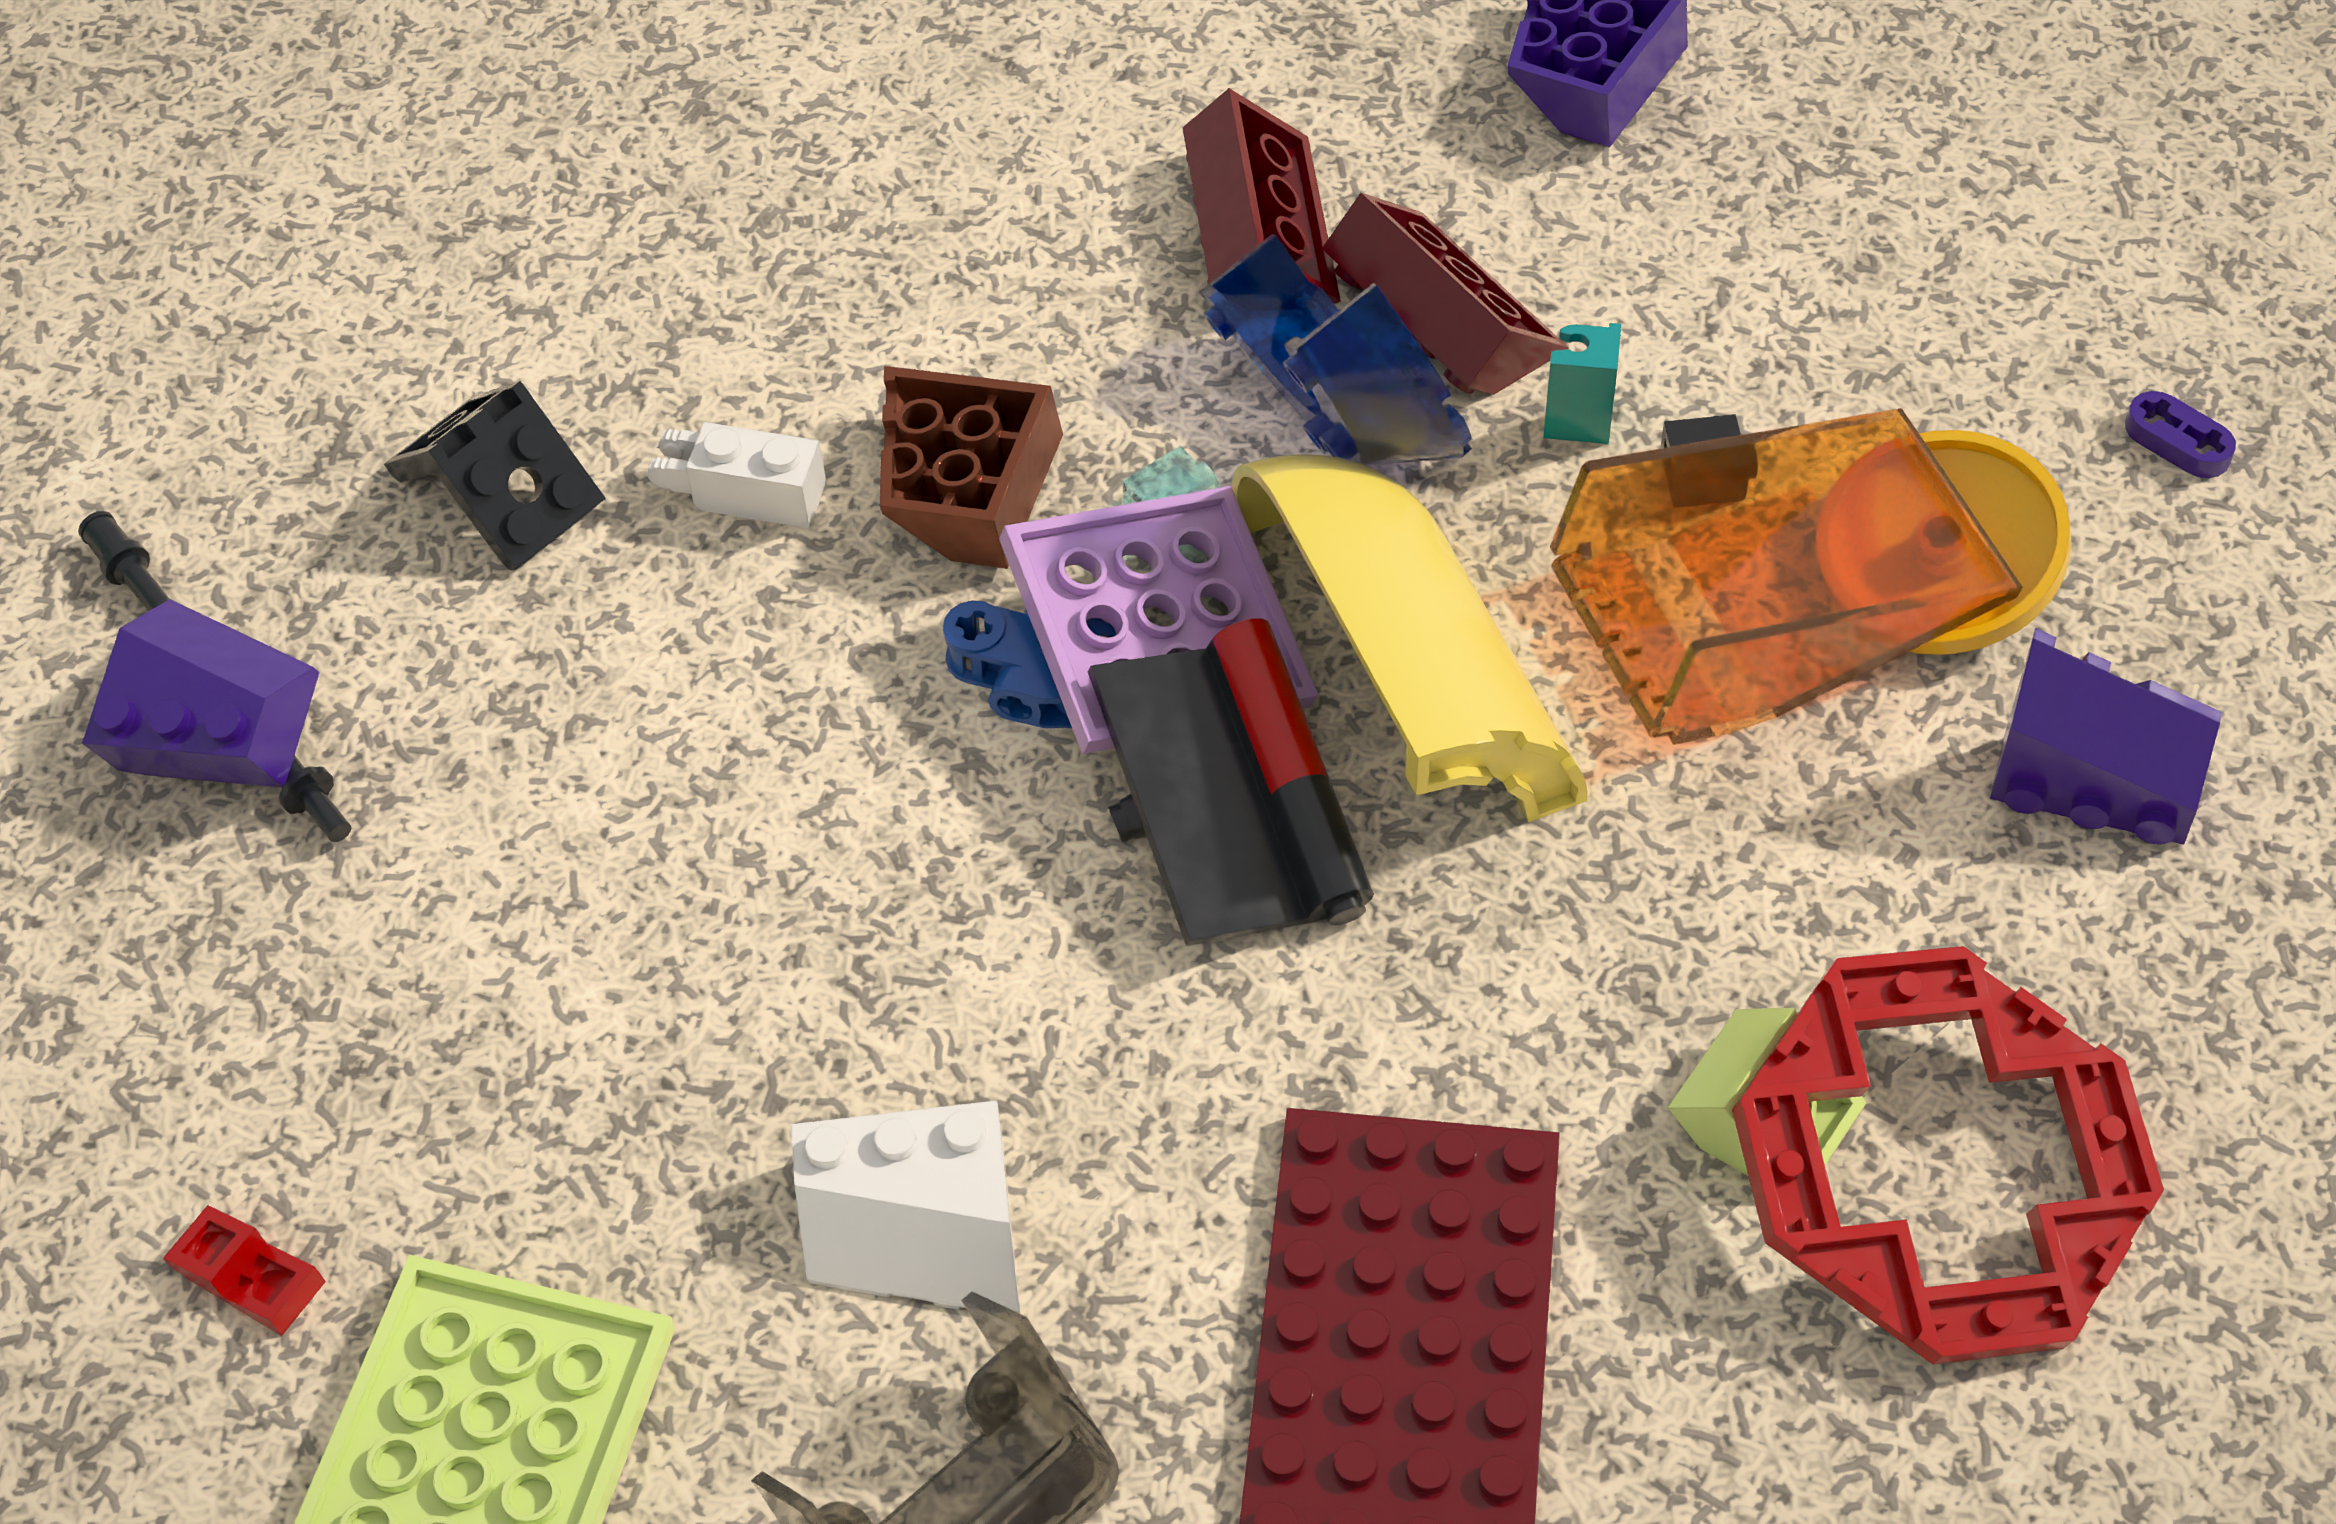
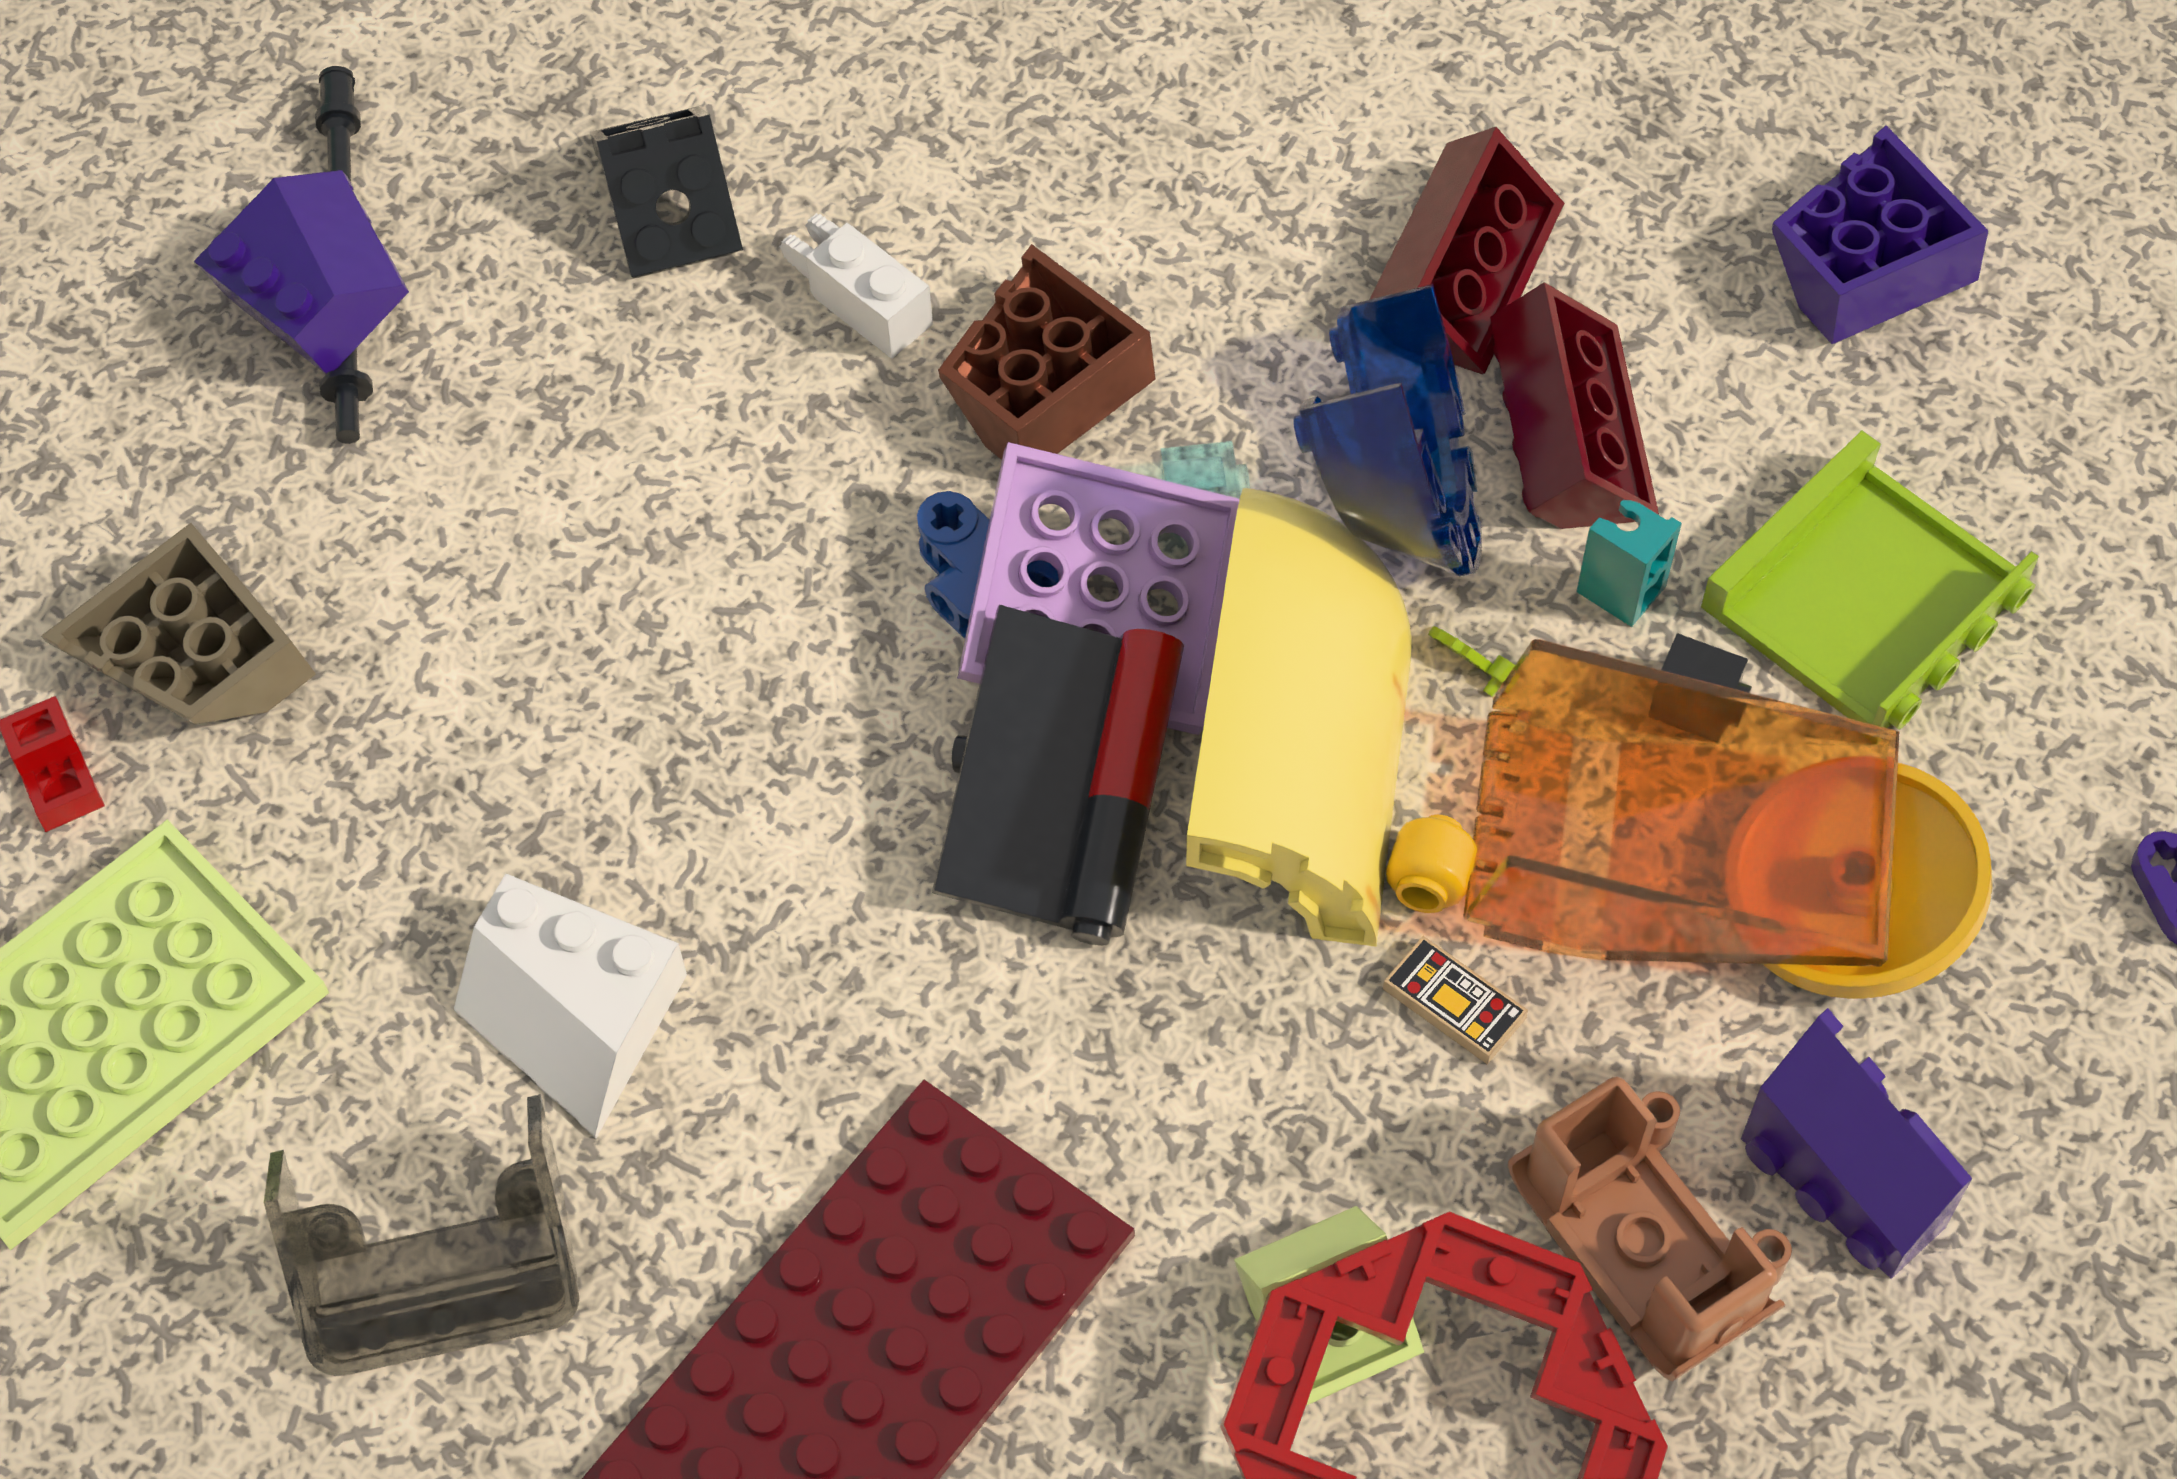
camera: 30 degrees right, 5 degrees up
(314, 1076) = (185, 636): none -> dark tan wedge
(1531, 527) = (1497, 670): none -> lime piece
(1592, 706) = (1431, 863): none -> yellow head
(1686, 808) = (1455, 999): none -> tile
(1778, 324) = (1865, 590): none -> lime panel
(1934, 893) = (1641, 1230): none -> nougat container

